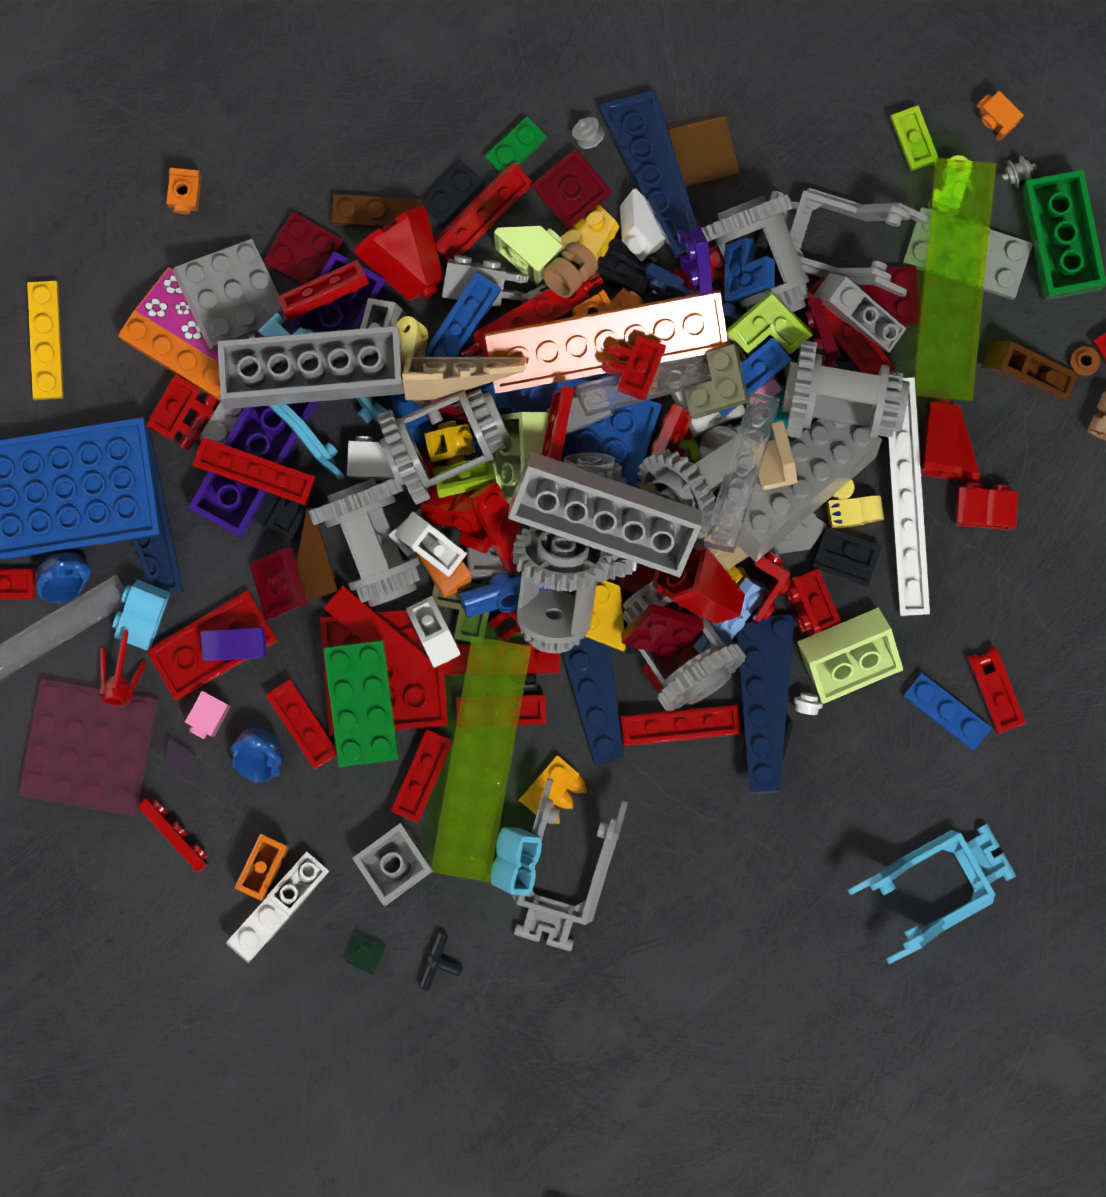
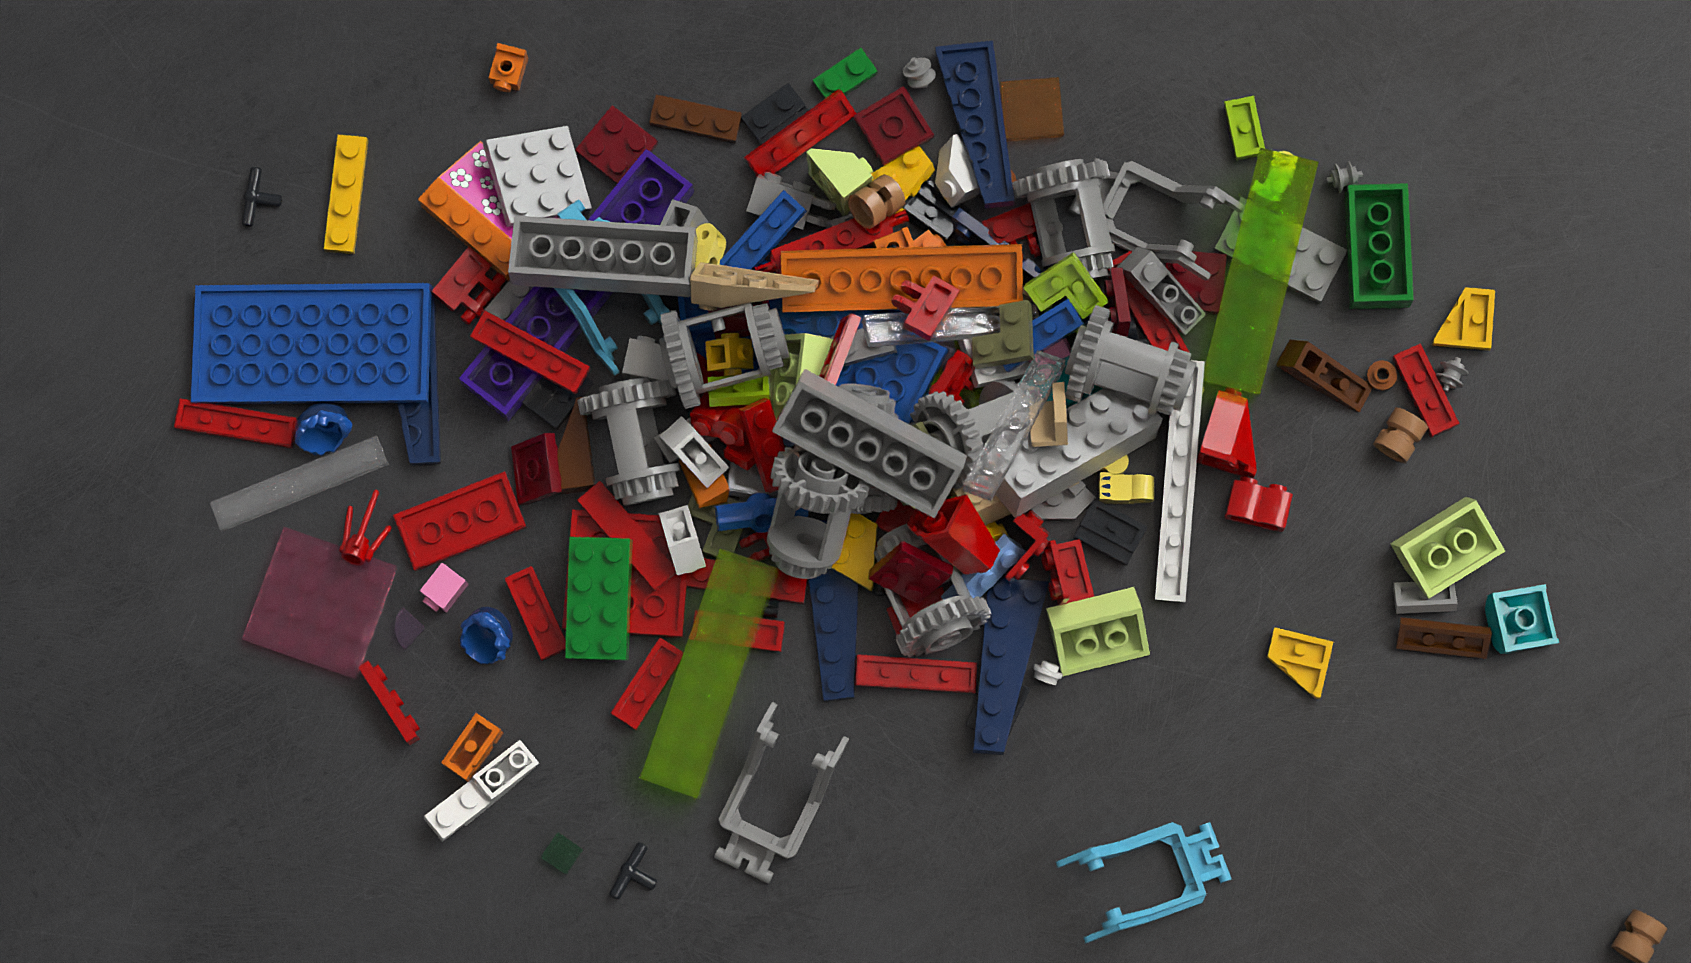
camera: 15 degrees right, 5 degrees down
(141, 613) = (395, 477): medium azure brick -> none
(233, 644) = (481, 521): dark purple slope -> none
(323, 290) = (628, 185): red plate -> none
(393, 864) = (603, 763): light grey slope -> none
(405, 254) = (716, 163): red slope -> none
(515, 861) = (726, 783): medium azure brick -> none
(563, 778) = (789, 709): light orange plate -> none
(698, 263) = (1005, 218): dark purple plate -> none
(743, 274) = (1050, 233): blue plate -> none
(947, 712) = (1187, 703): blue plate -> none
(996, 691) = (1240, 690): red plate -> none
(999, 114) = (1333, 117): orange brick -> none
(1050, 651) = (1301, 658): none -> yellow wing

